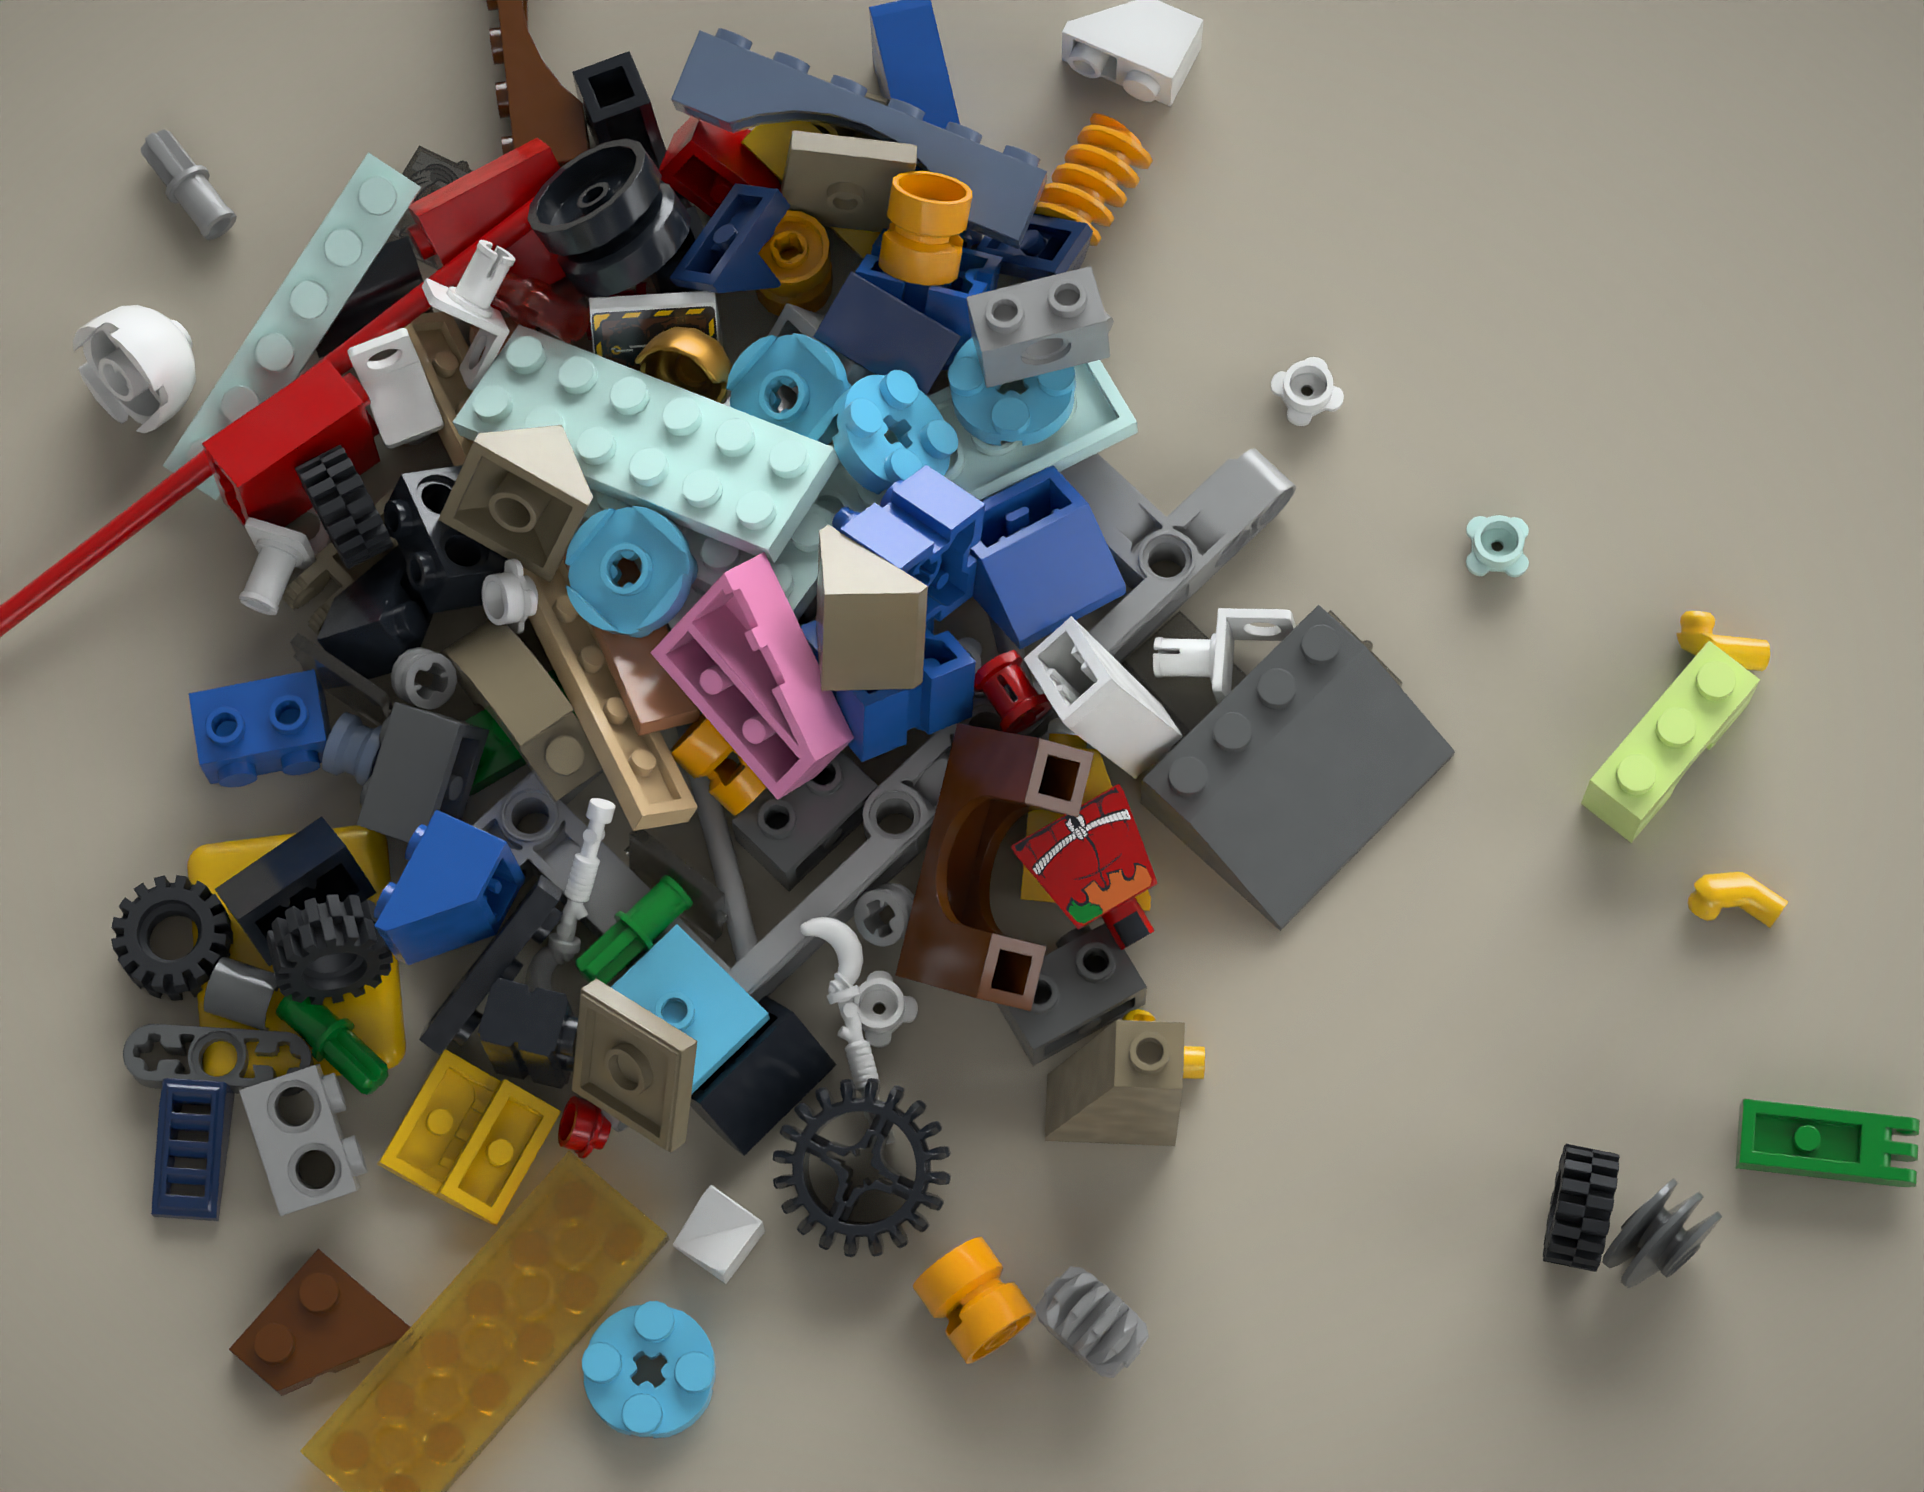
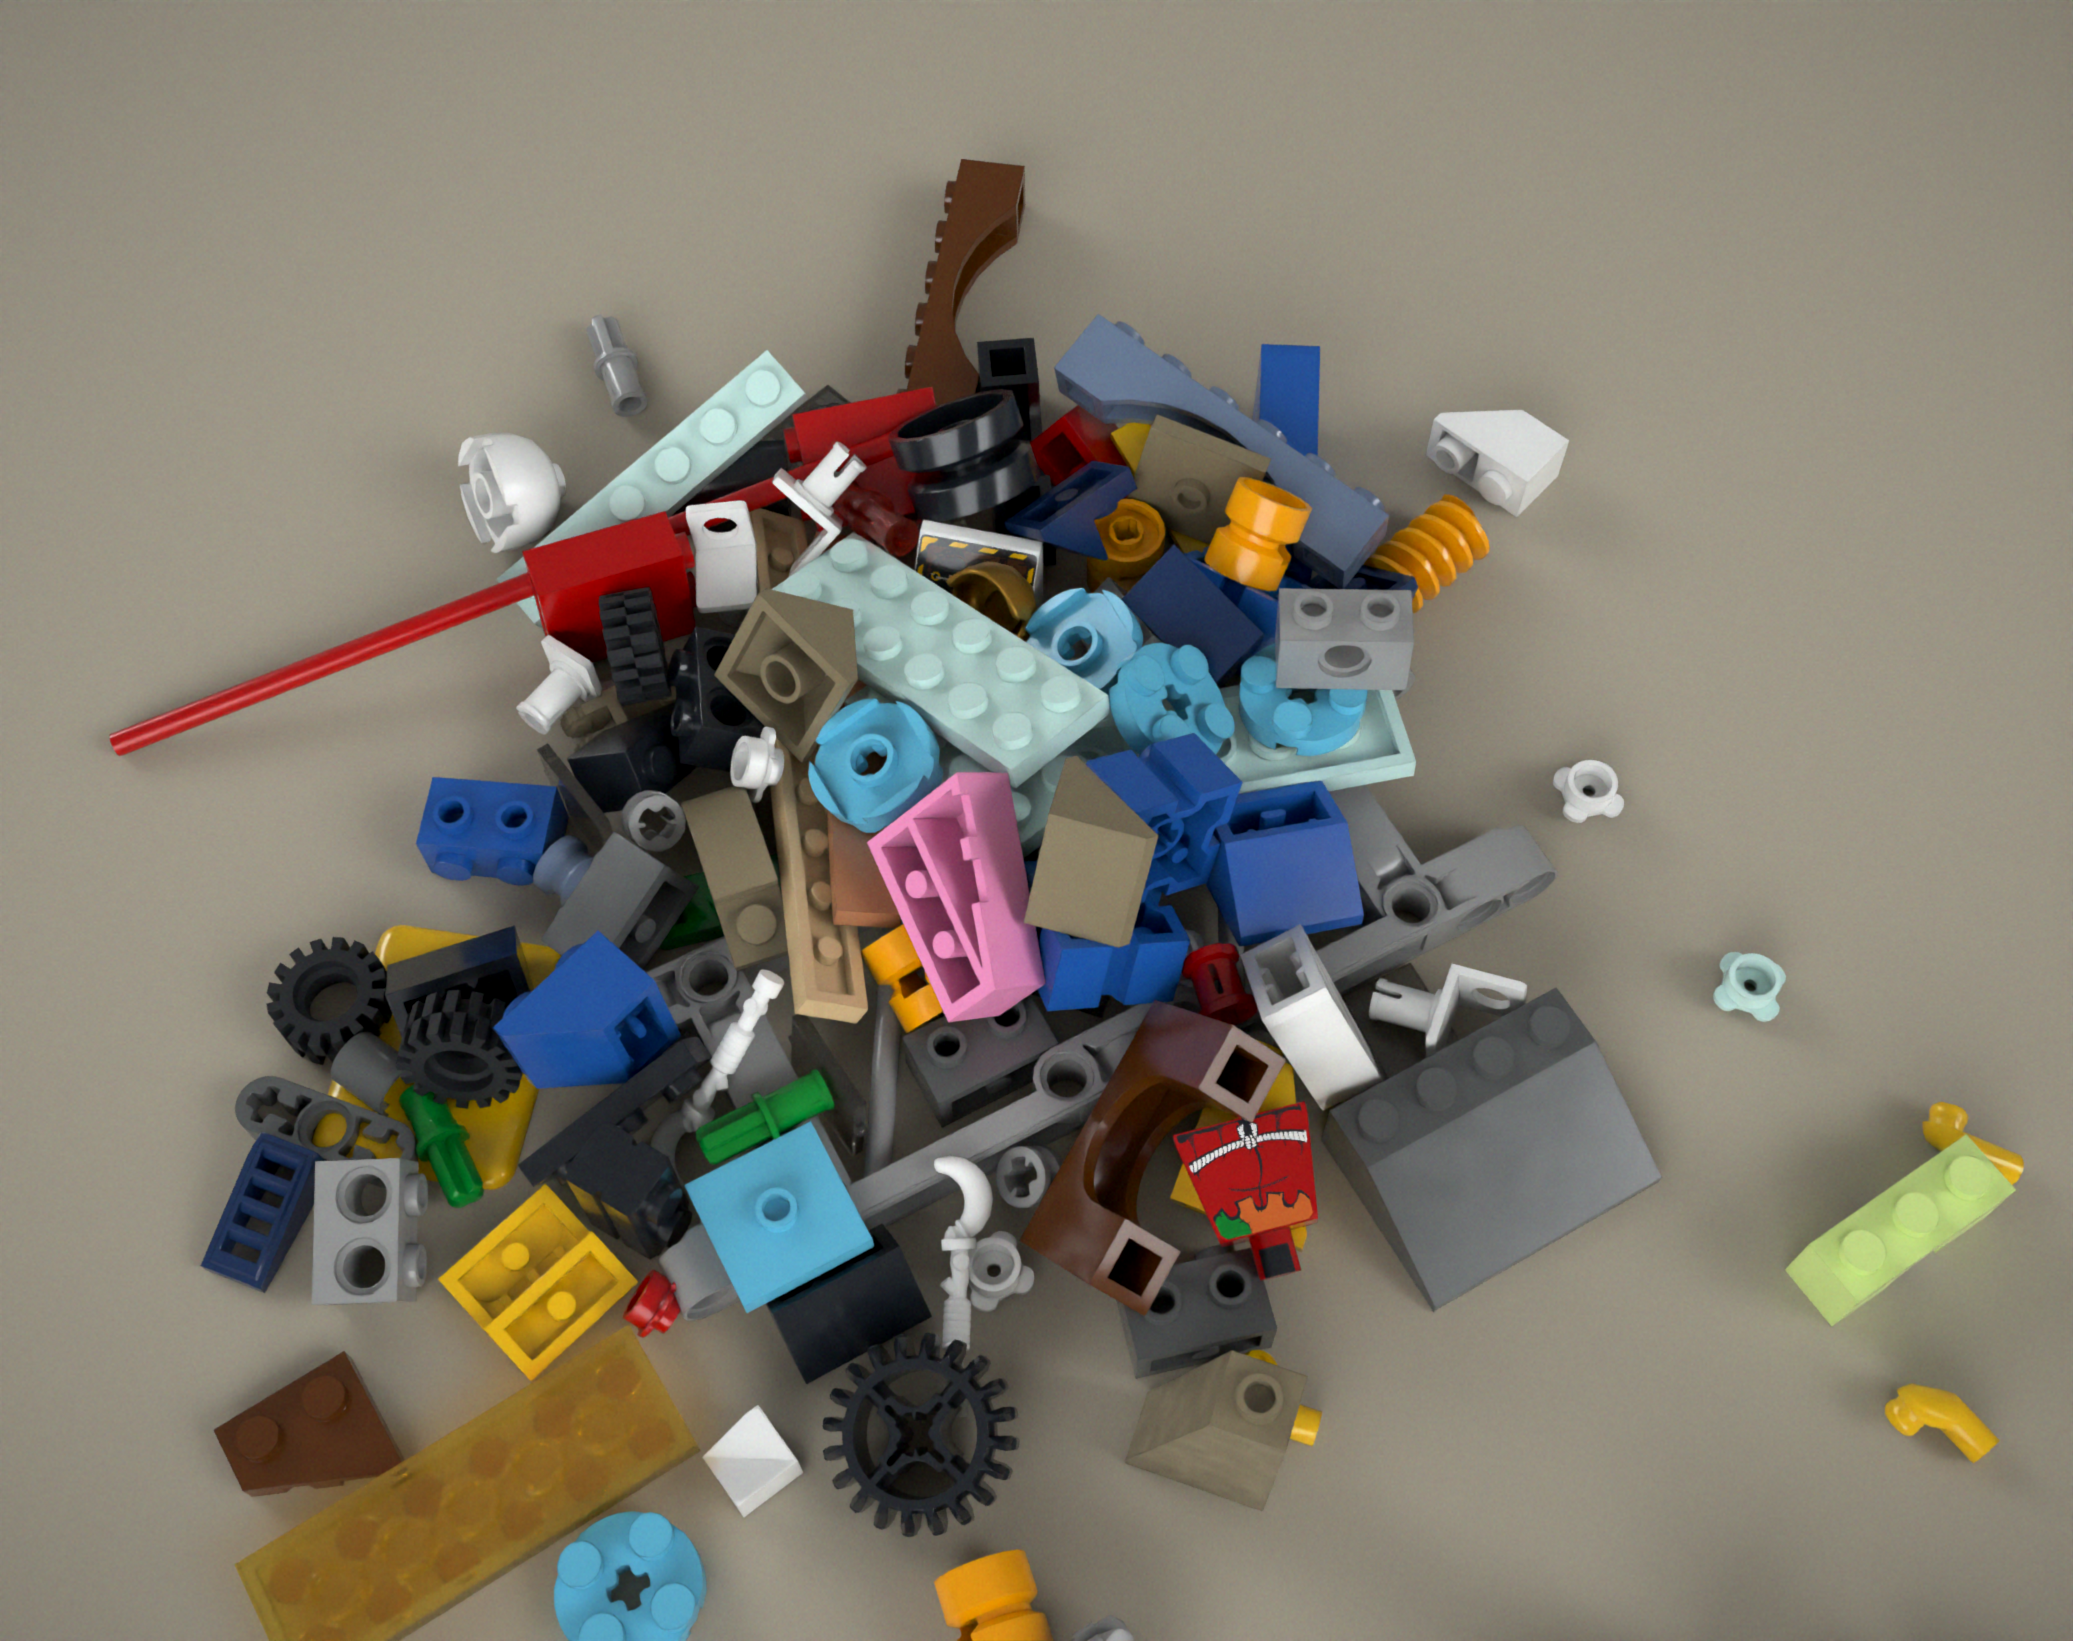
camera: 15 degrees right, 10 degrees down
(633, 1065) = (713, 1252): dark tan plate -> none

